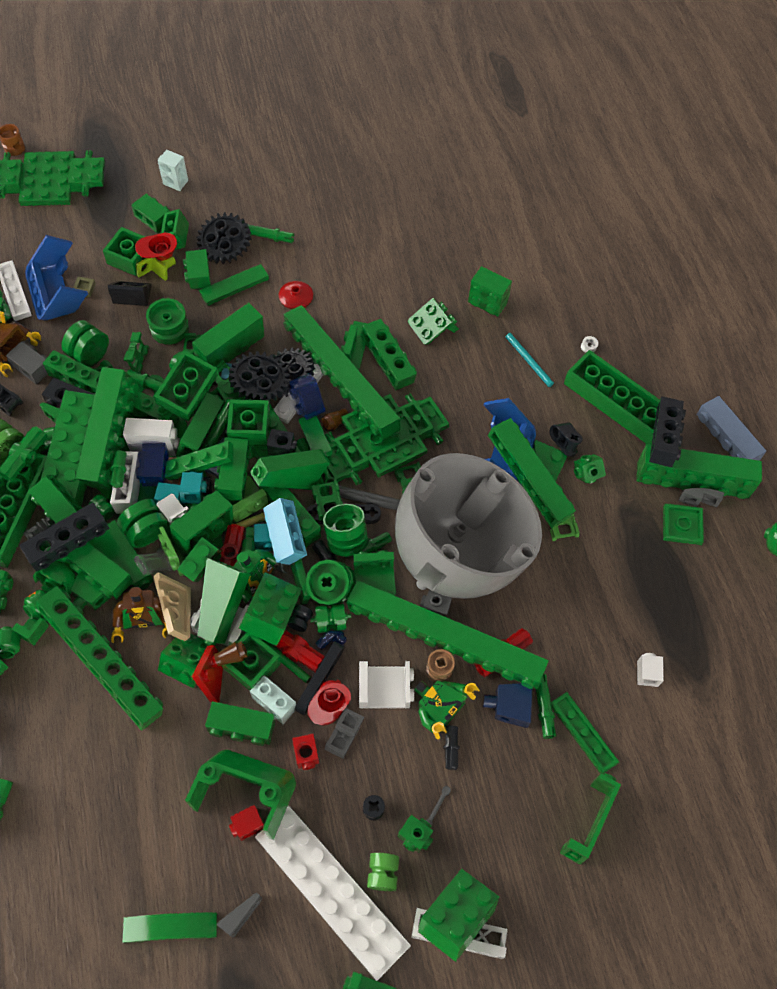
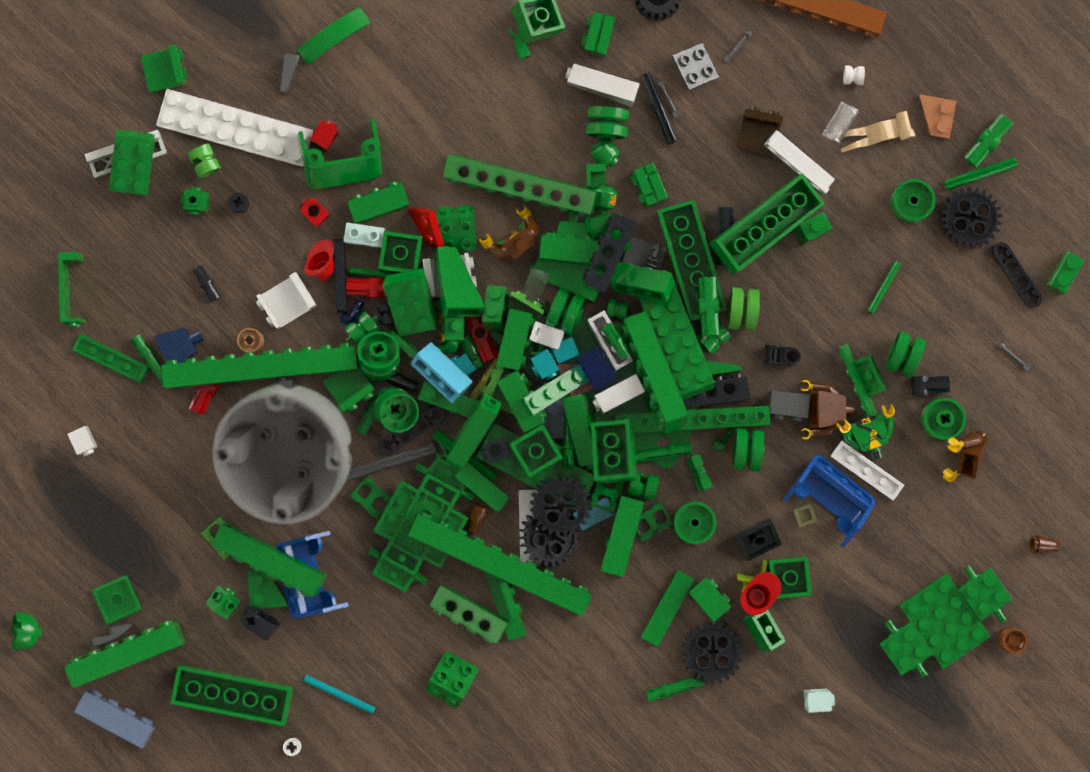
camera: 150 degrees right, 25 degrees up
(150, 212) = (805, 640): green brick -> none
(175, 605) = (490, 260): tan wing -> none
(233, 653) = (414, 244): reddish brown cone -> none
(295, 294) = (597, 625): red dish -> none
(307, 396) = (510, 517): clear blue brick -> none
(321, 501) = (425, 436): green piece -> none
(344, 733) = (295, 245): dark grey slope -> none
(442, 703) = (232, 311): torso -> none
(445, 791) = (192, 249): dark grey hinge -> none
(489, 291) = (415, 741): green brick -> none
(667, 432) = (164, 635): black brick -> none

